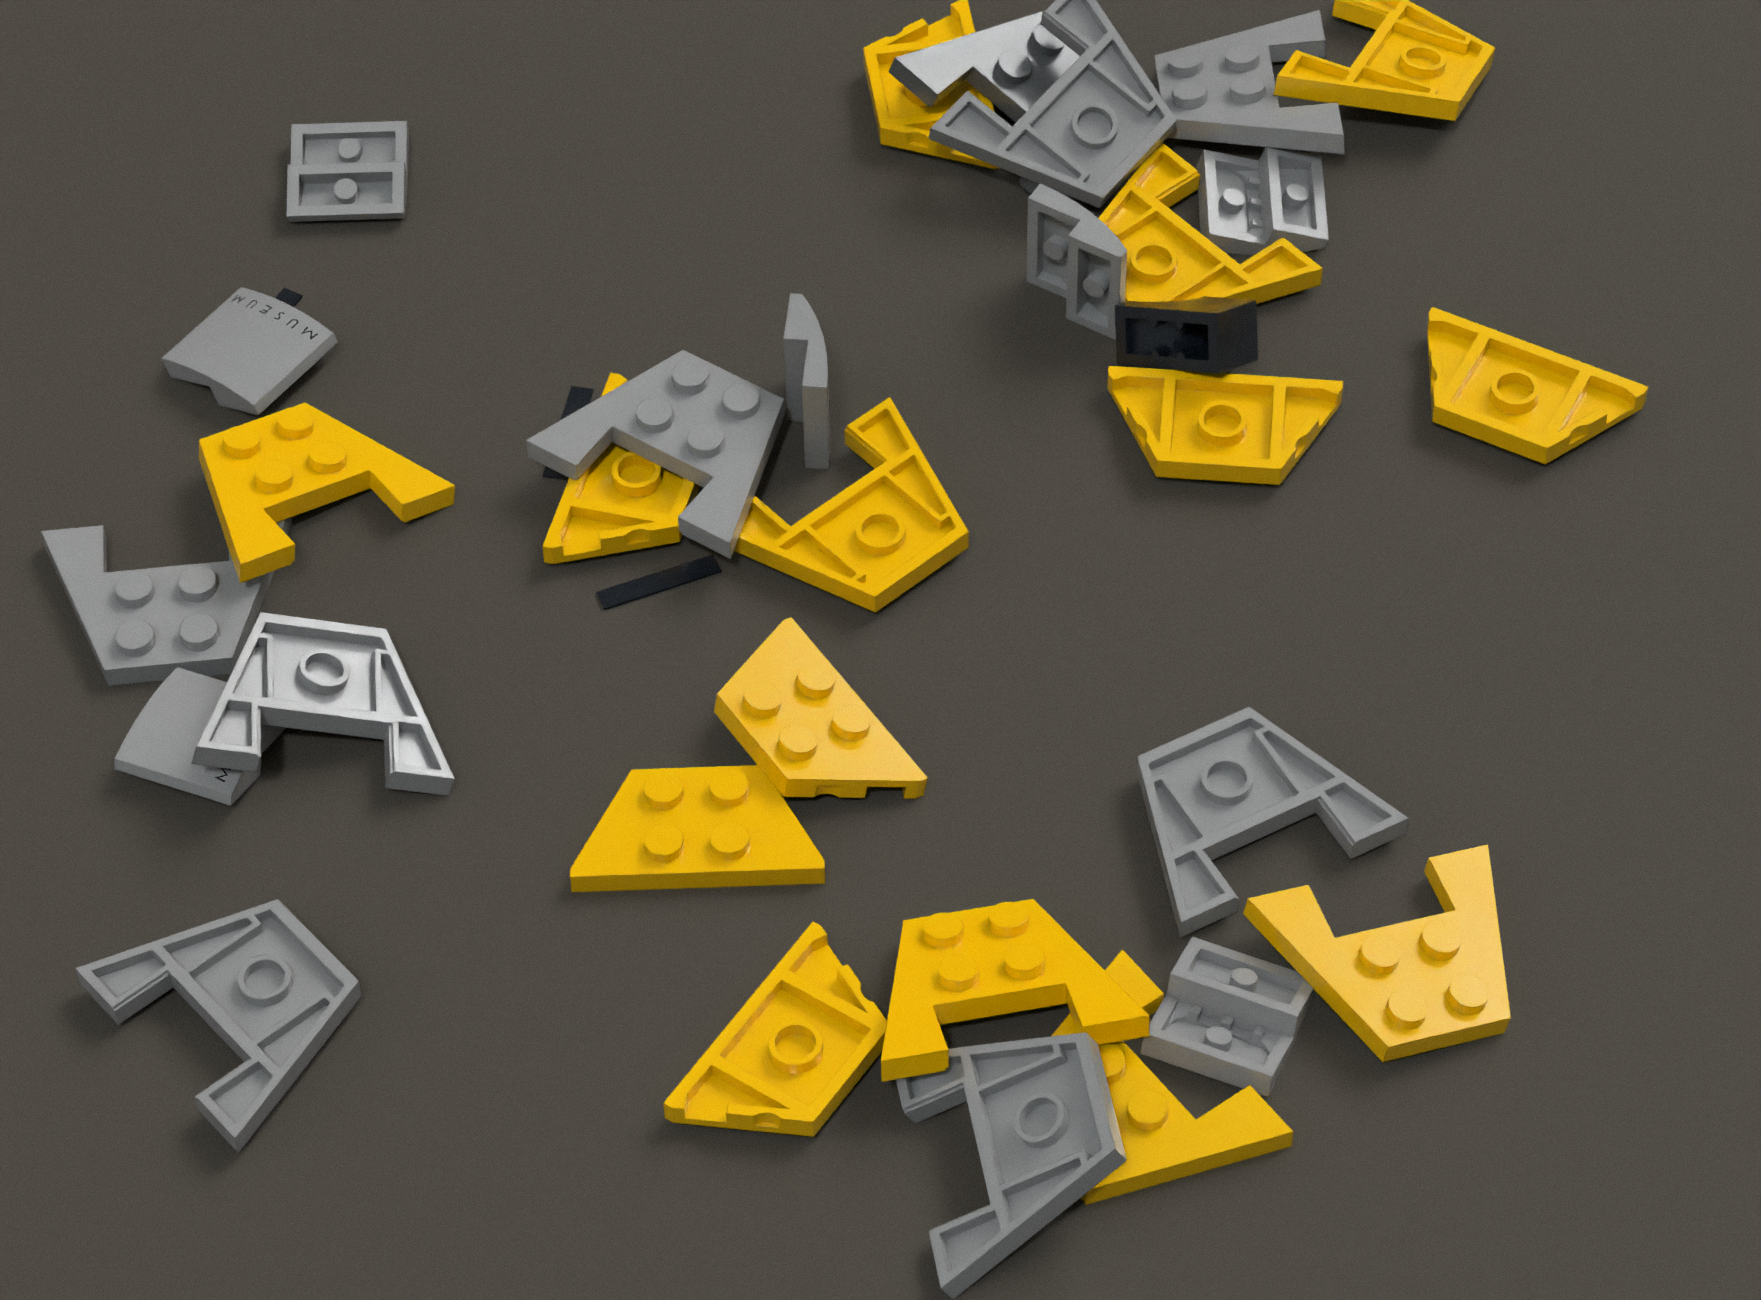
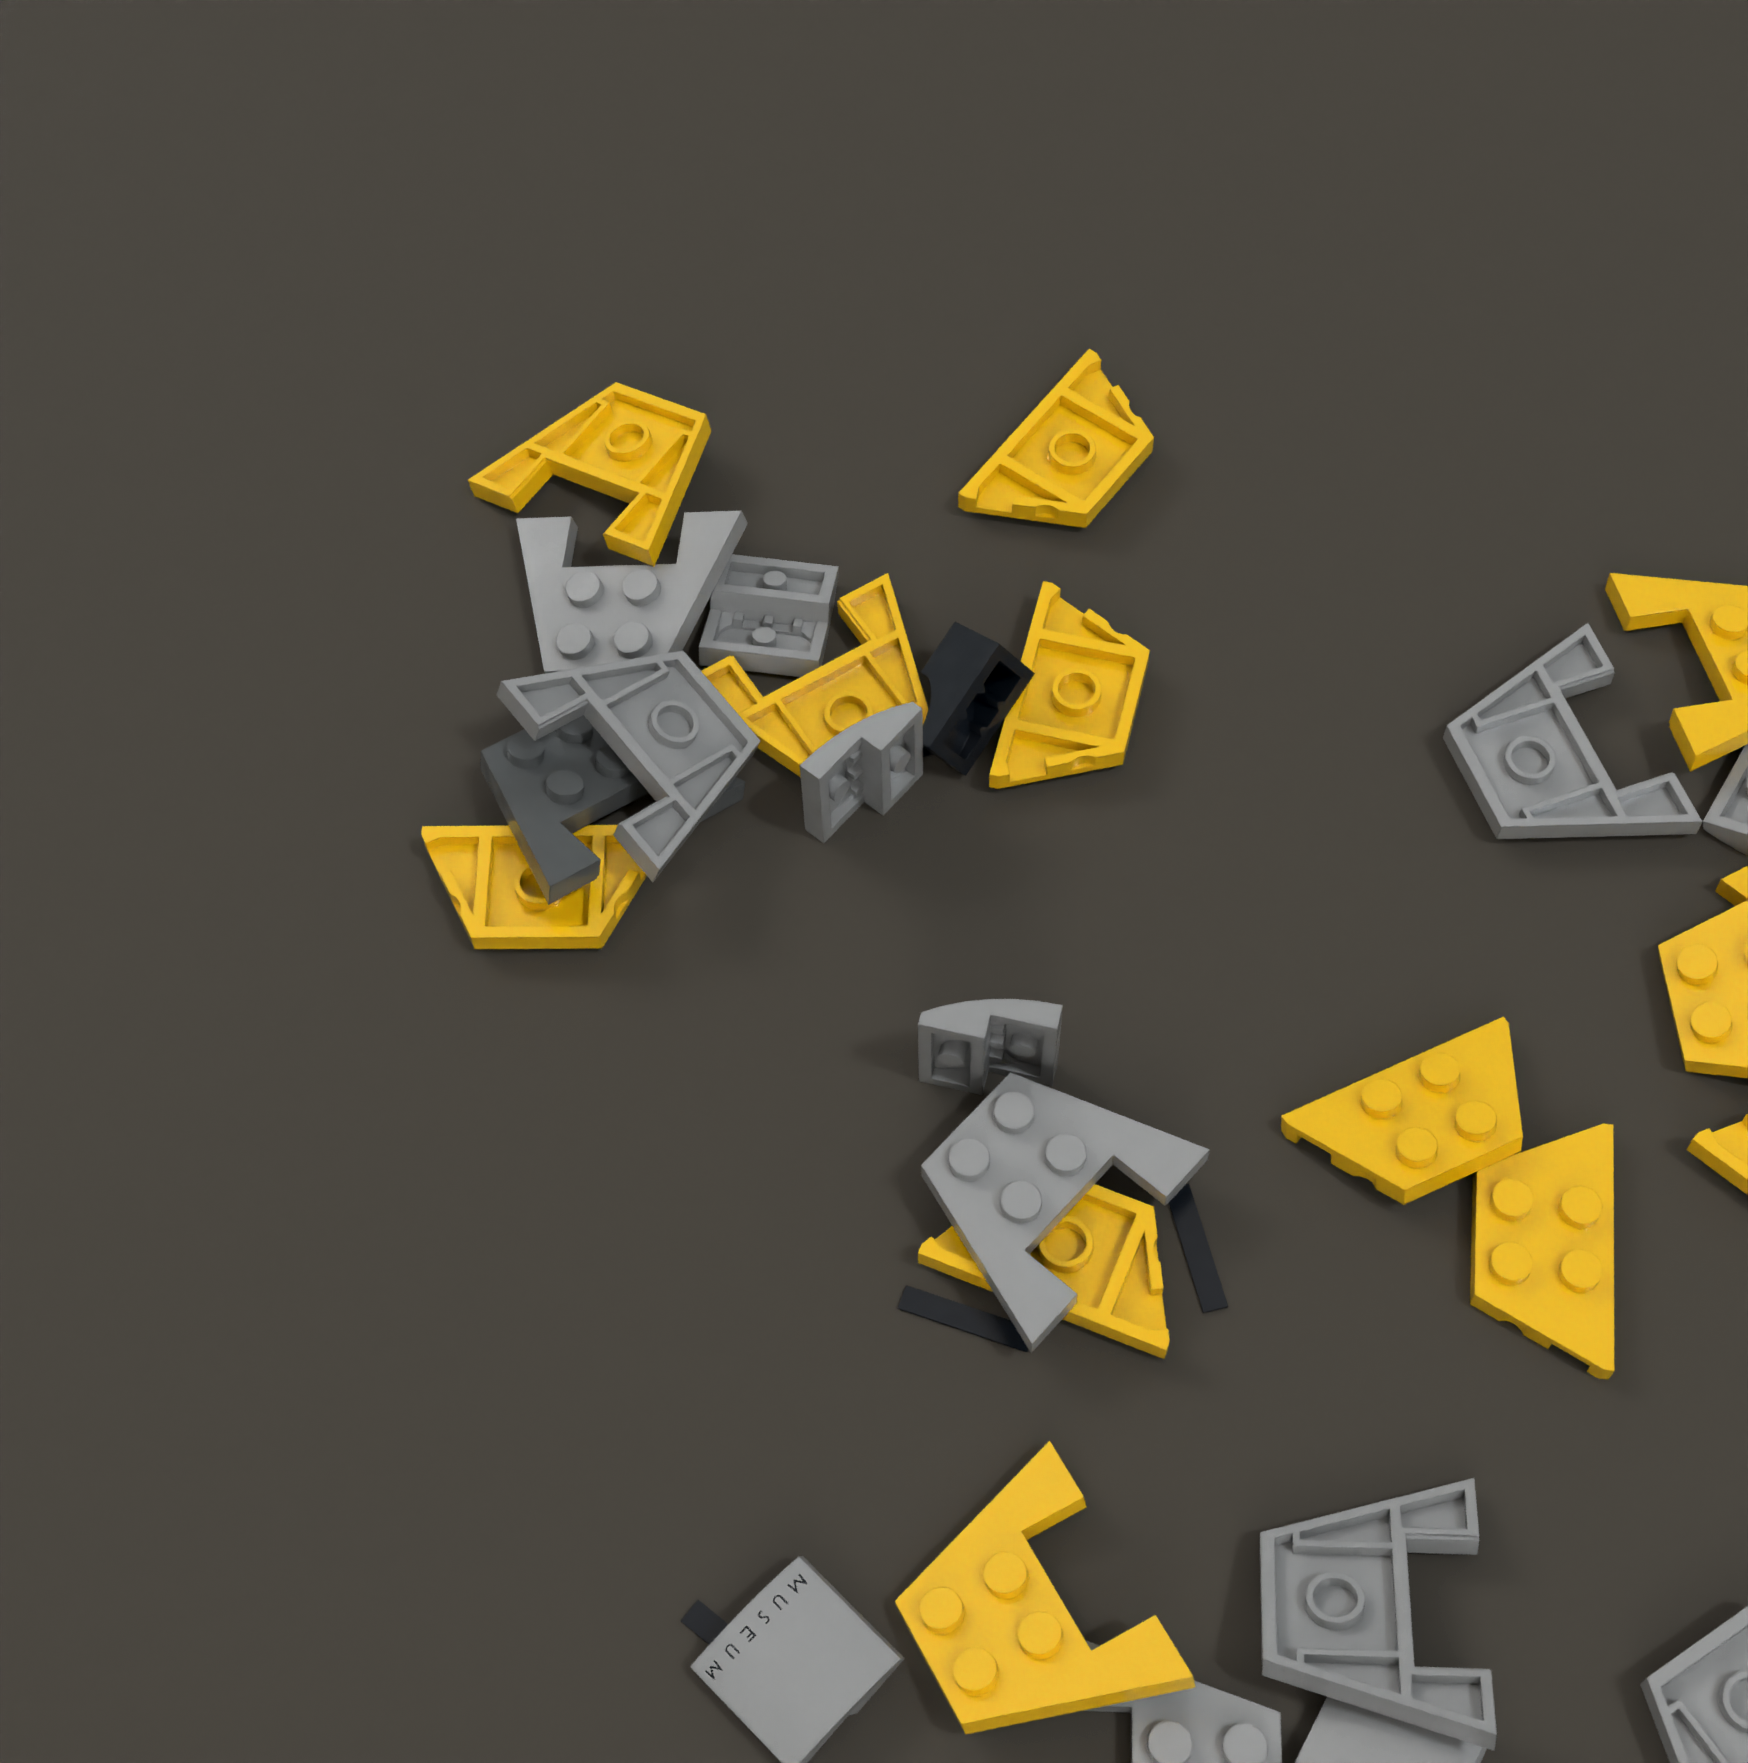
camera: 80 degrees left, 10 degrees up
(348, 171) = (517, 1527): light grey slope -> none
(873, 534) = (1170, 1014): yellow wing -> none

